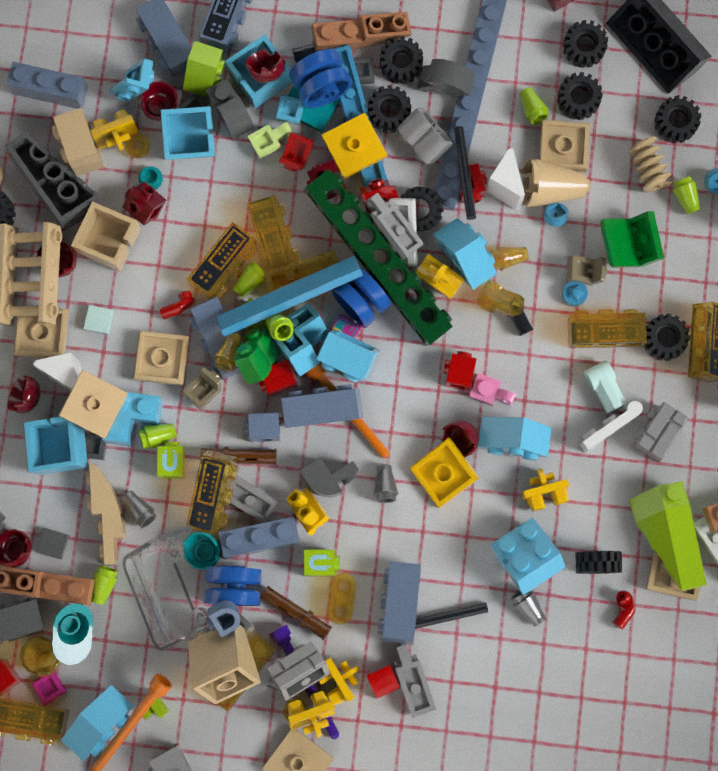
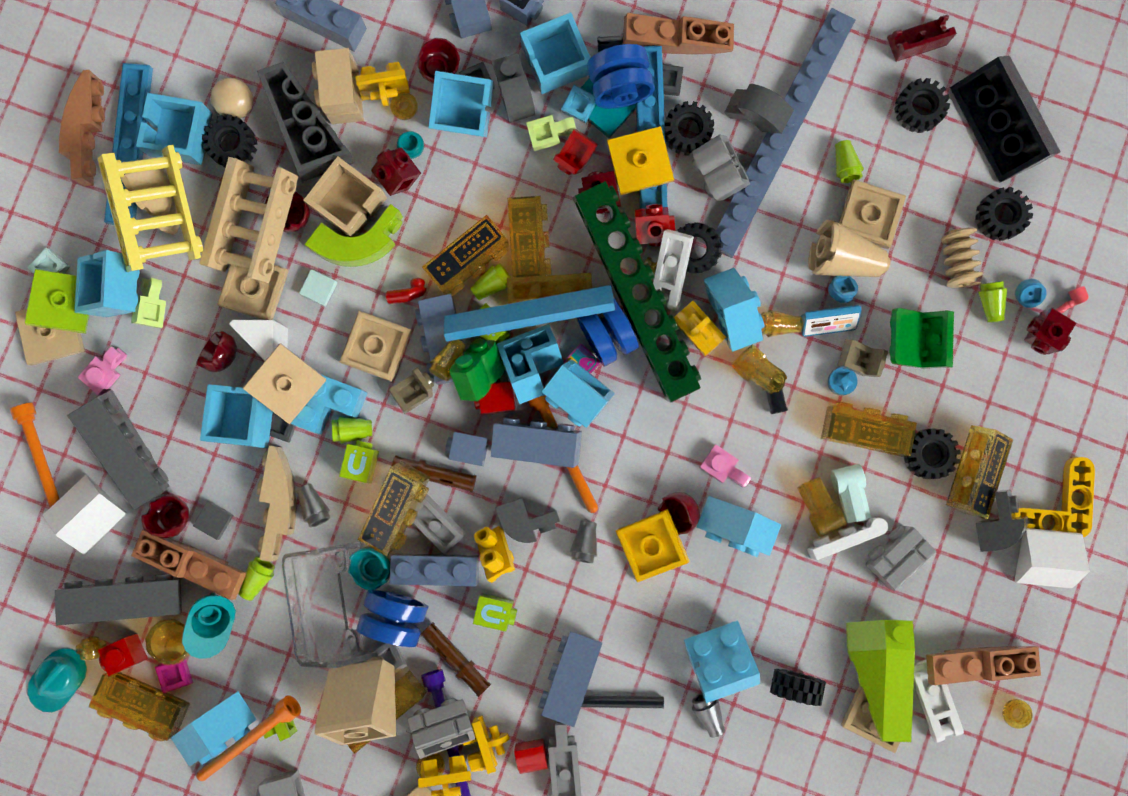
camera: 15 degrees right, 5 degrees up
(125, 279) = (360, 249): none -> lime arch
(135, 82) = (417, 35): medium azure bracket -> none
(203, 68) = (494, 35): lime brick -> none
(223, 617) = (370, 657): sand blue plate -> none
(264, 66) = (562, 49): dark red hair -> none
(279, 327) = (509, 346): lime cone -> none
(341, 598) = (508, 655): clear yellow plate -> none
(394, 226) = (662, 262): light grey hinge -> none
(401, 46) = (720, 62): black tyre -> none
(460, 370) = (696, 437): red brick -> none
(465, 173) = (755, 220): black bar -> none
(478, 181) = (766, 231): red bracket -> none
(506, 182) = (799, 241): white slope -> none
(551, 244) = (830, 320): none -> slope
(557, 489) = (771, 594): yellow hips -> none
(586, 410) = (824, 514): none -> clear yellow piece
(588, 85) = (910, 149): black tyre -> none
(626, 609) = (814, 741): red arm -> none

